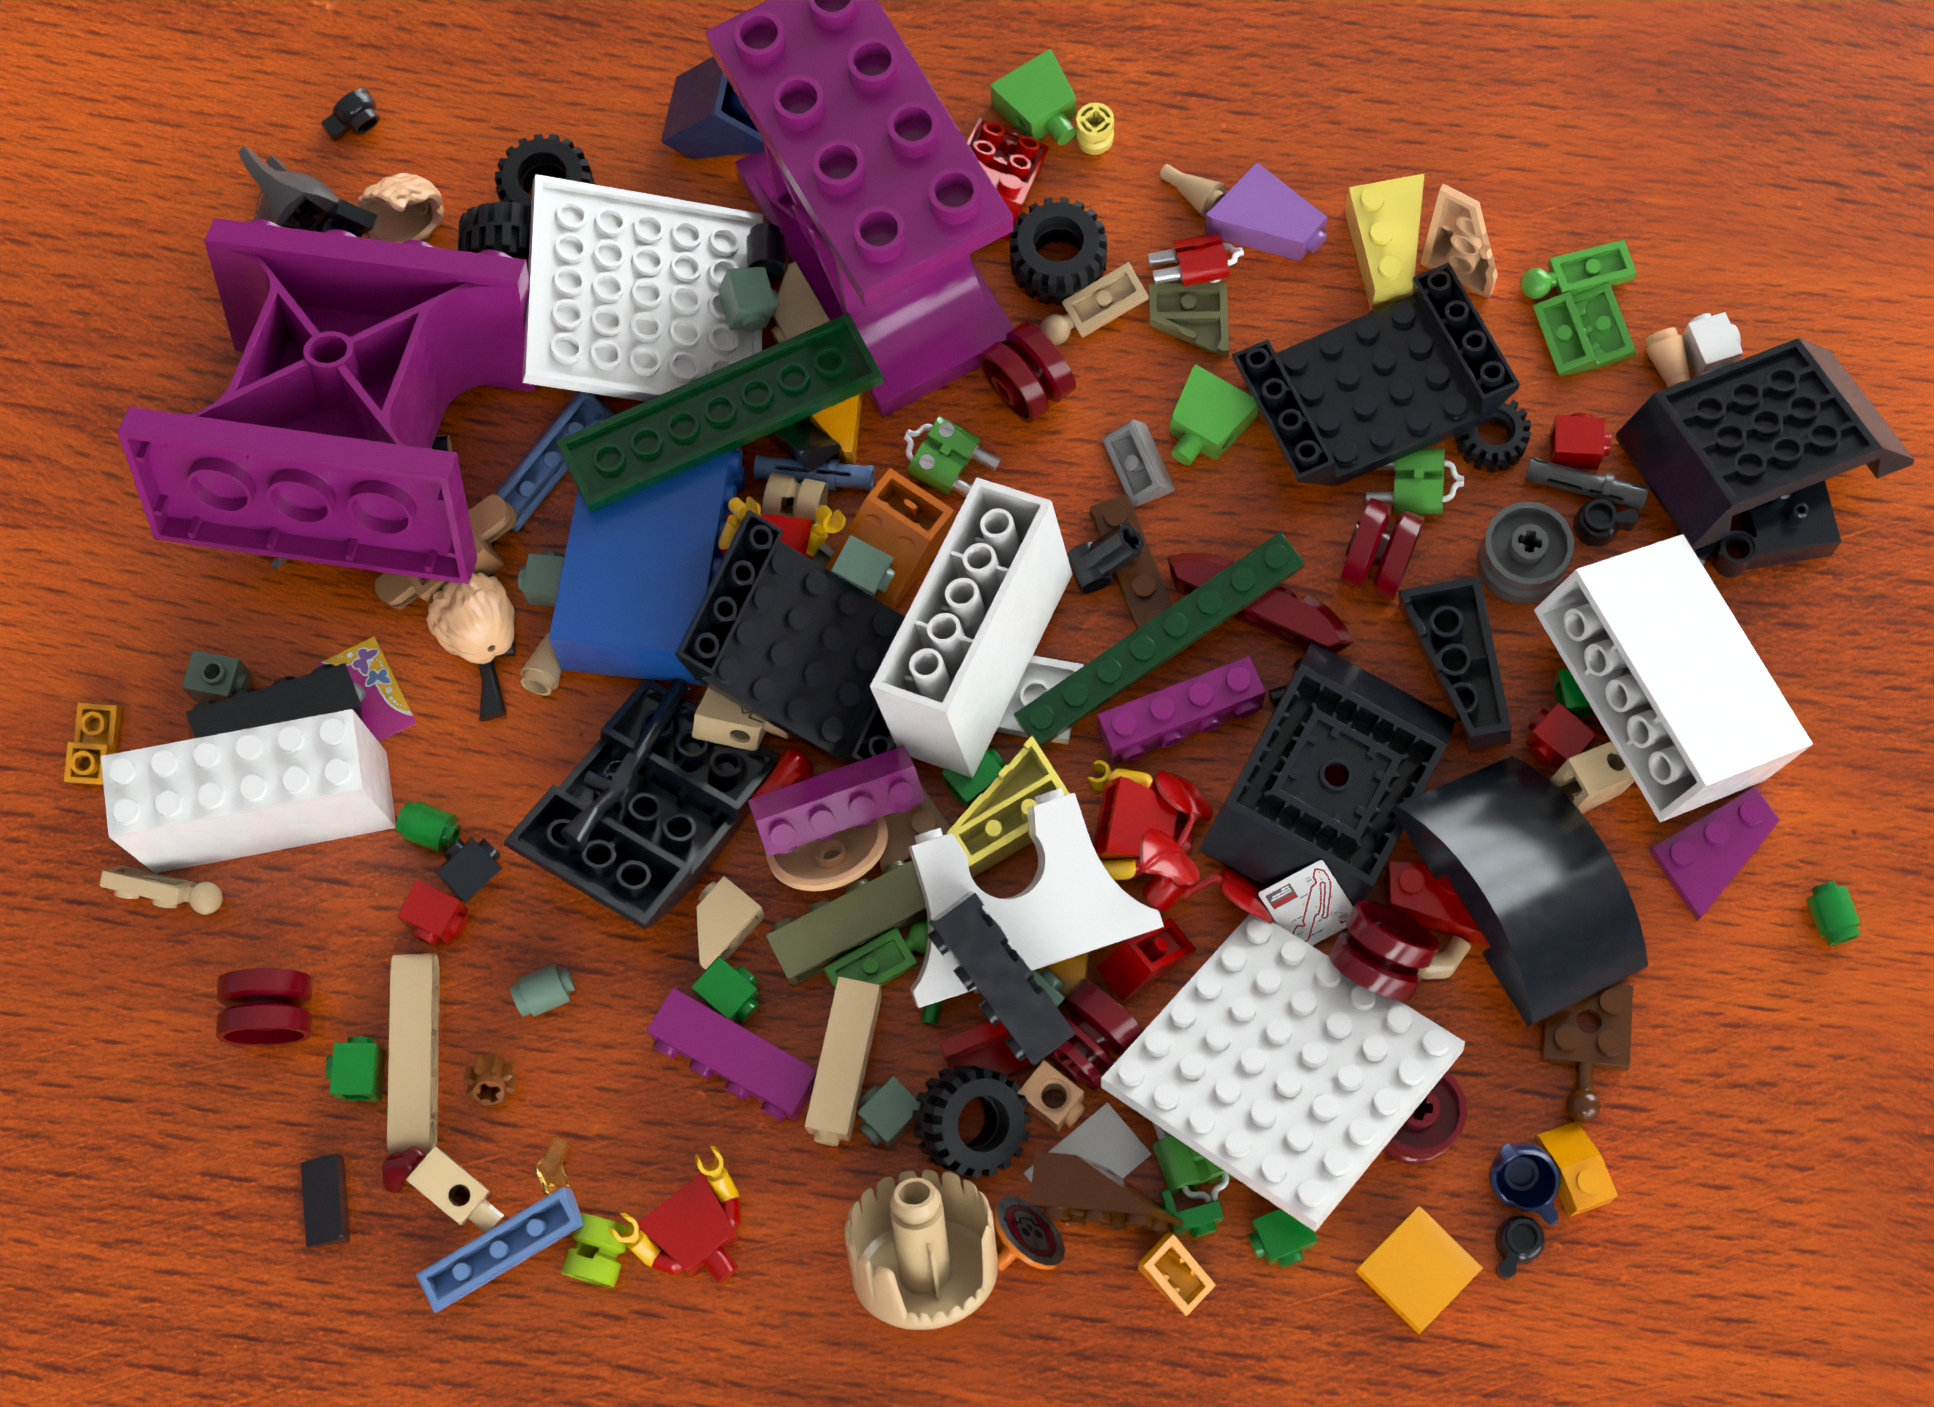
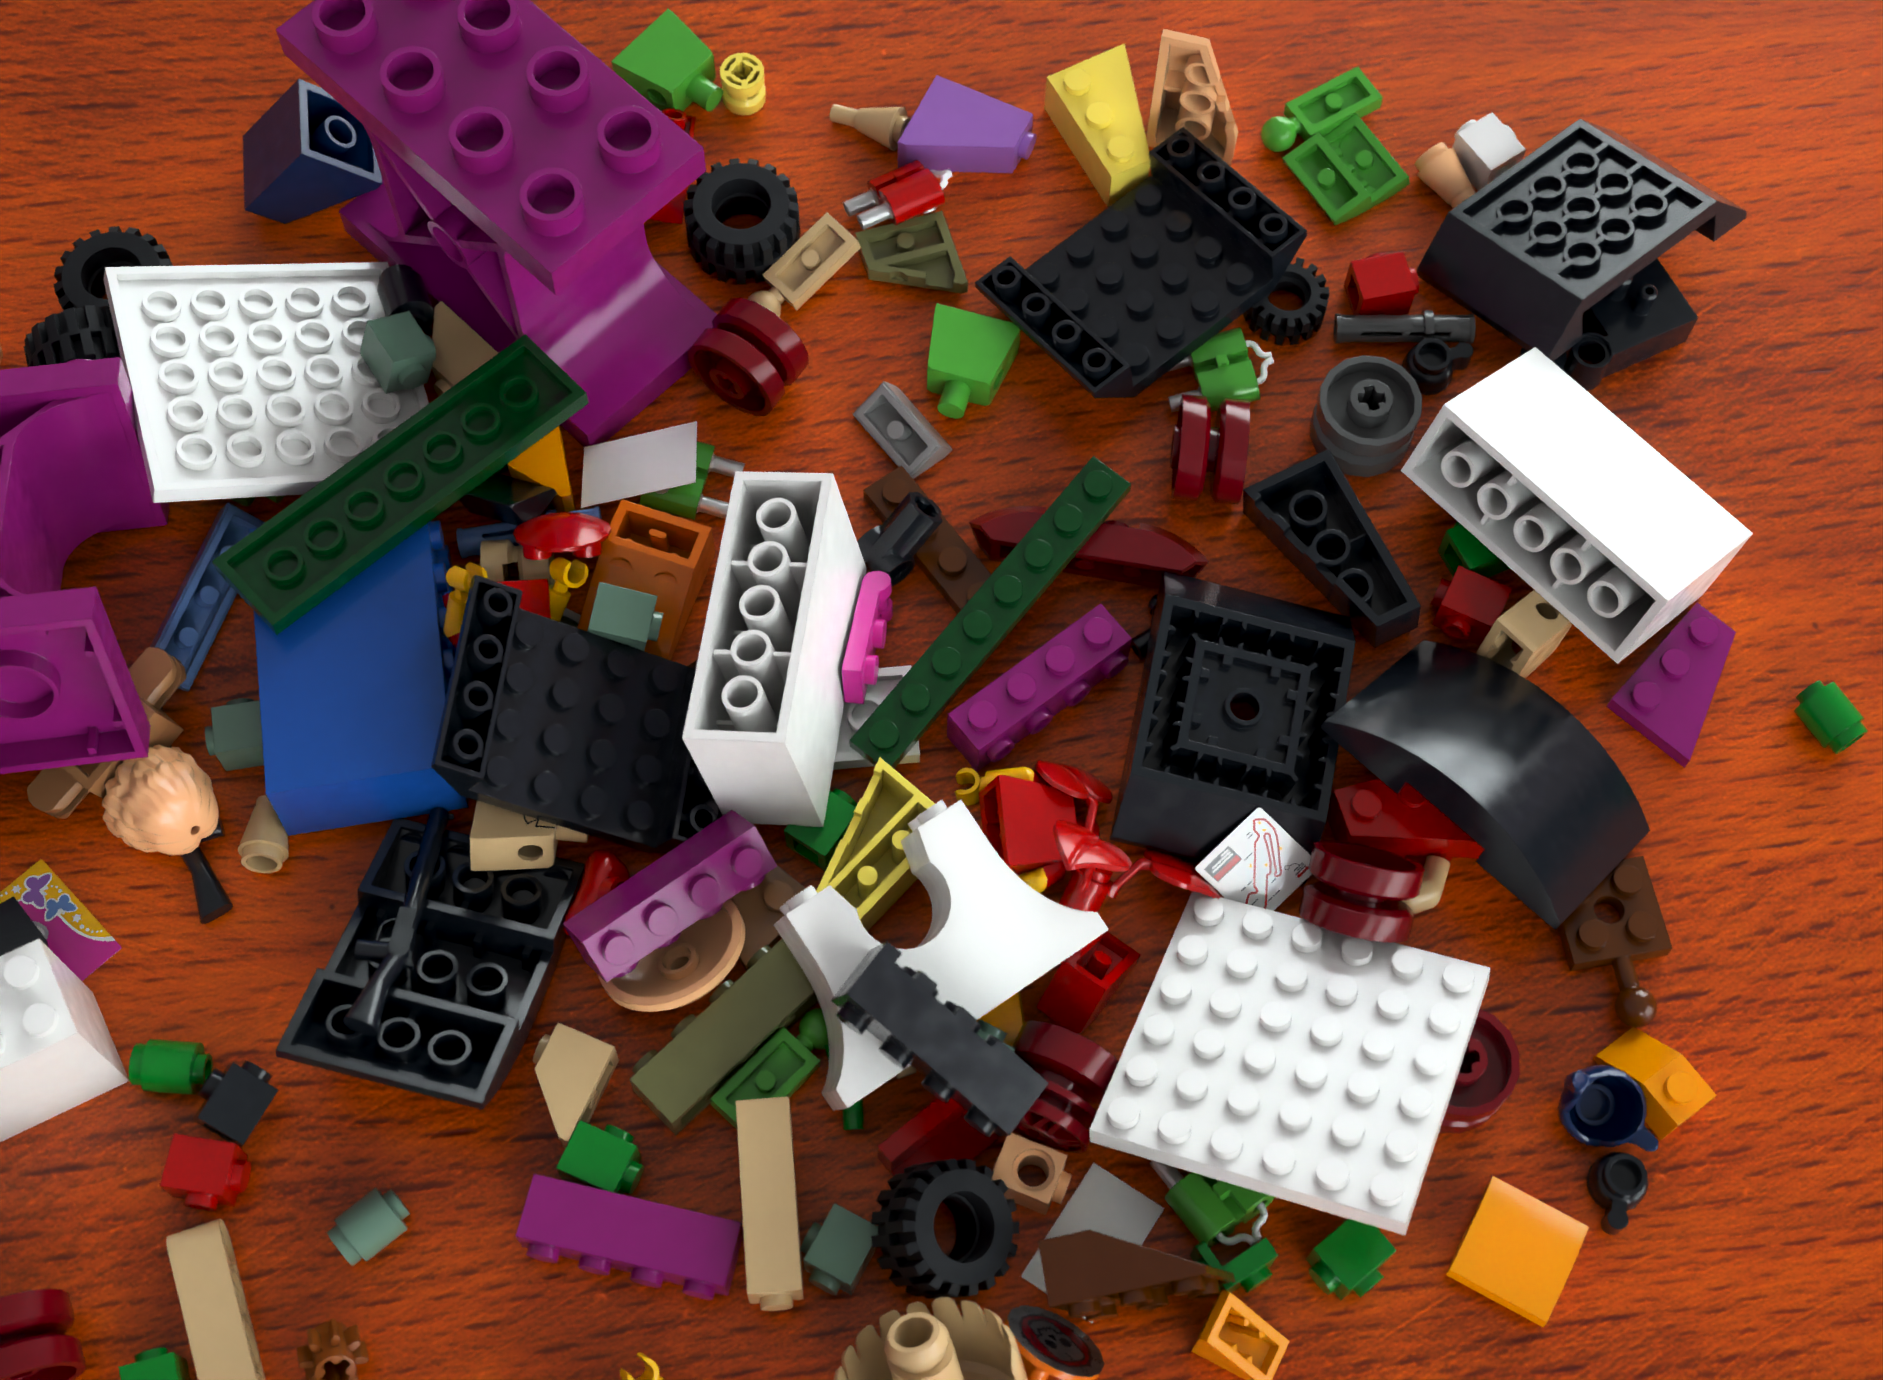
camera: 25 degrees left, 5 degrees down
(834, 485) = (562, 533): none -> red dish
(914, 440) = (639, 464): none -> white sticker
(1052, 631) = (866, 634): none -> dark pink plate

